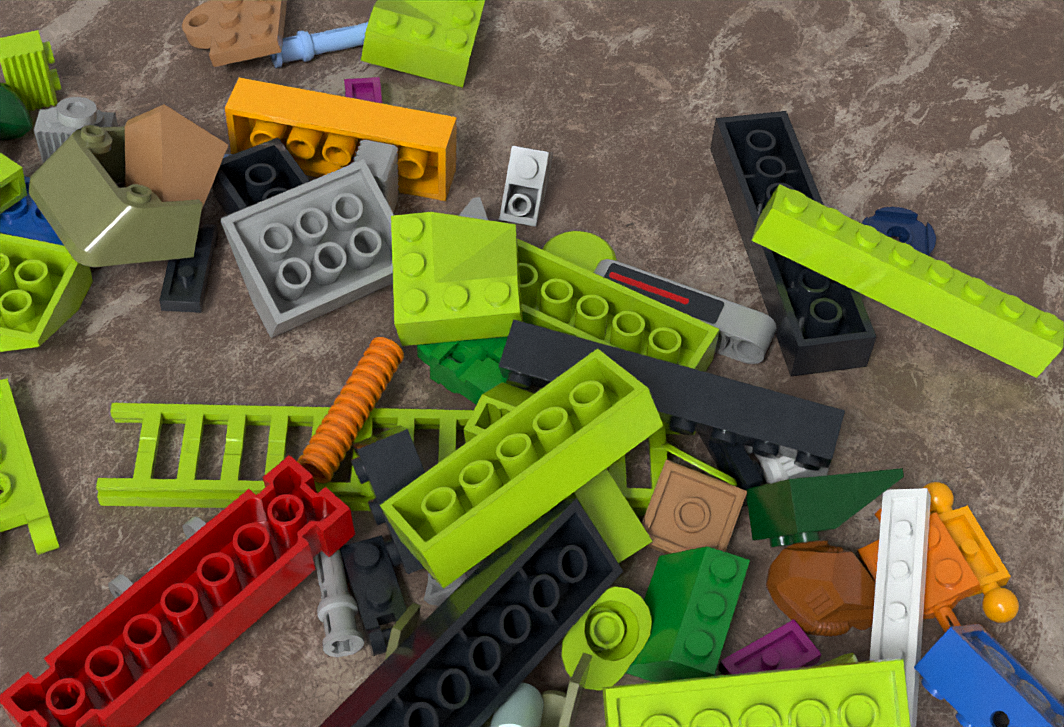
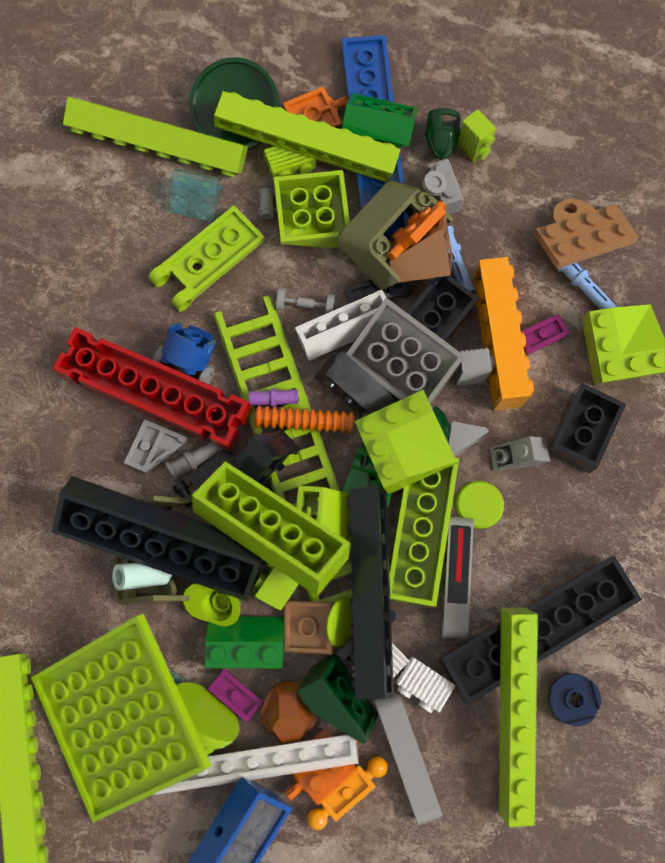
camera: 70 degrees right, 25 degrees up
(135, 148) = (415, 229): none -> orange plate
(140, 533) = (188, 348): none -> blue brick
(177, 332) = (303, 302): none -> light grey wheel
(221, 321) = (338, 326): none -> white brick
(283, 661) = (153, 446): none -> light grey wing
(295, 435) = (273, 397): none -> medium lavender pin
(322, 337) = (353, 385): none -> black wedge
(523, 99) = (586, 428): none -> black brick
(838, 386) = (424, 684): none -> white brick
(937, 453) = (408, 759): none -> light grey beam

